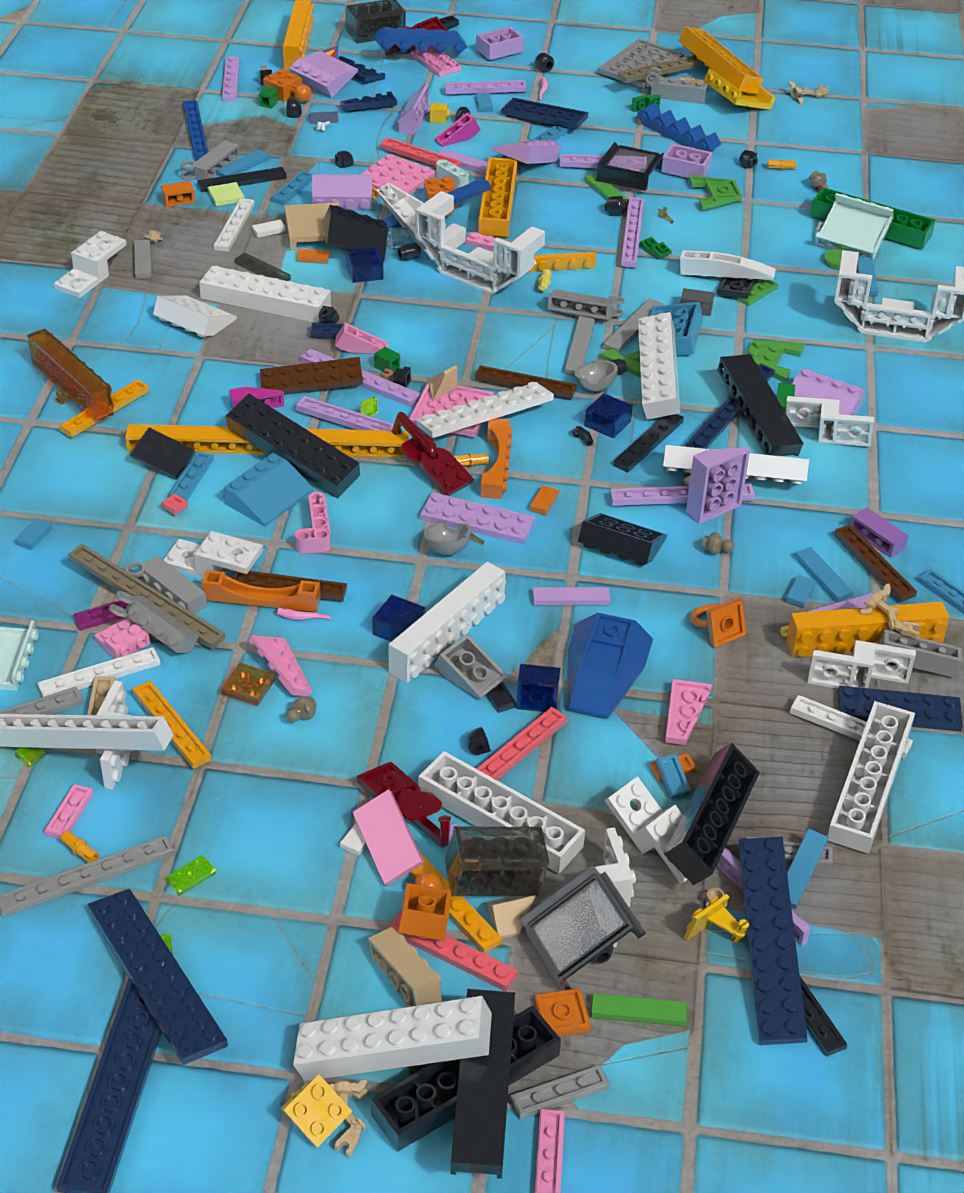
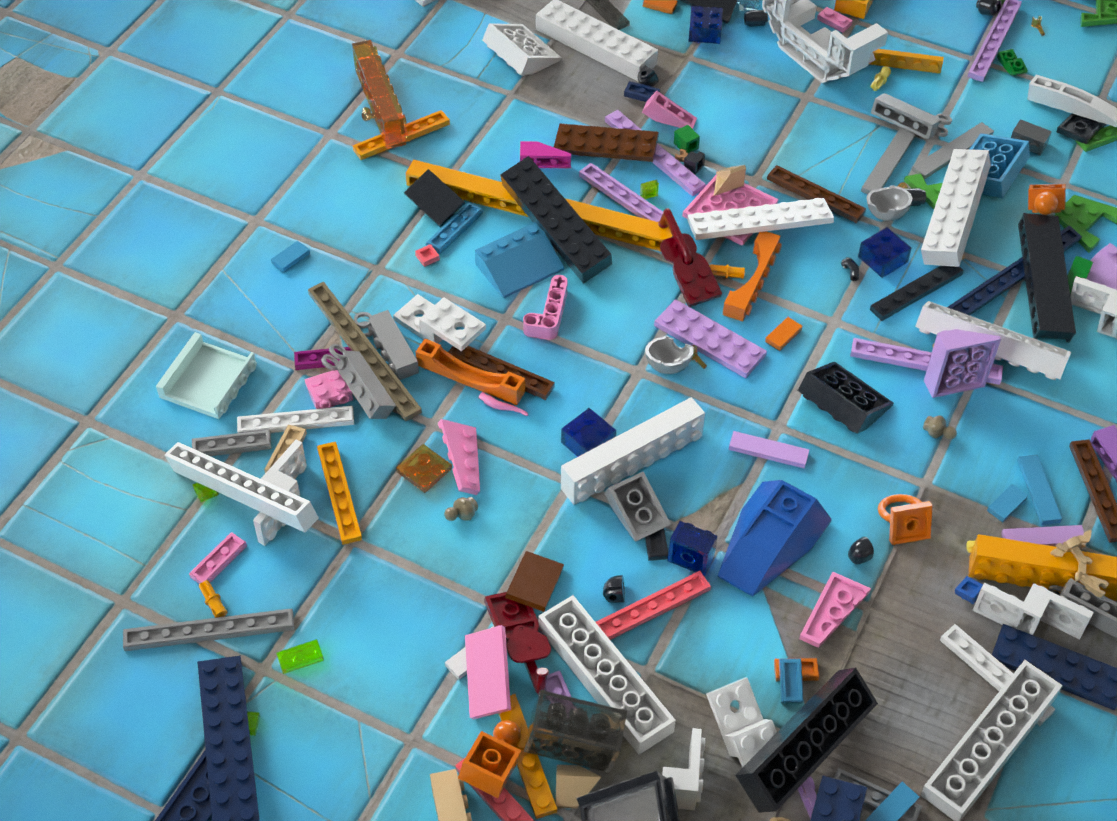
camera: 20 degrees right, 10 degrees up
(399, 752) = (534, 581): none -> reddish brown tile
(691, 656) = (861, 550): none -> black piece
(734, 343) = (1047, 198): none -> orange brick
(799, 664) = (968, 589): none -> blue tile

